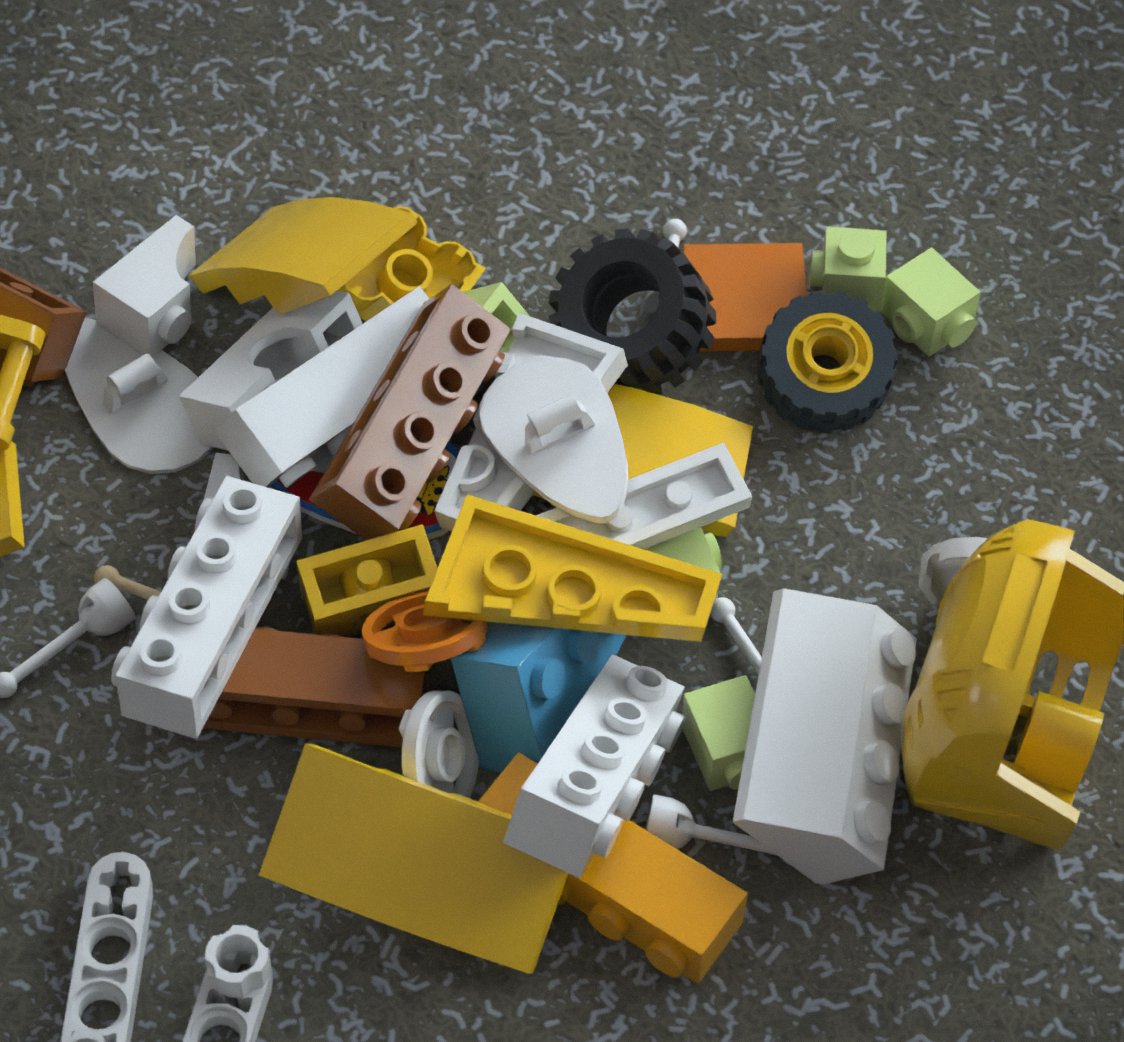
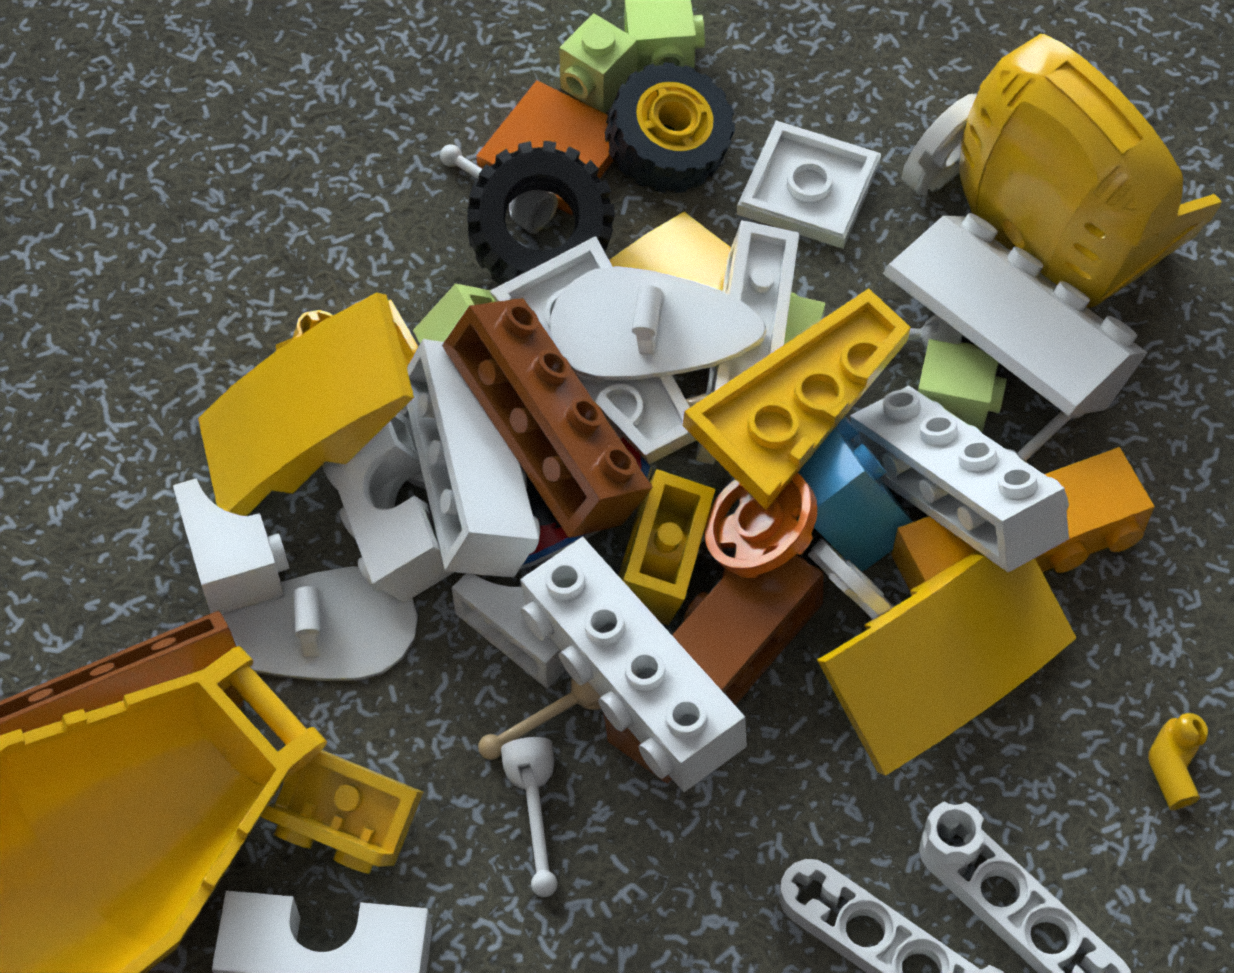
camera: 55 degrees left, 5 degrees up
(869, 508) = (809, 184): none -> white tile

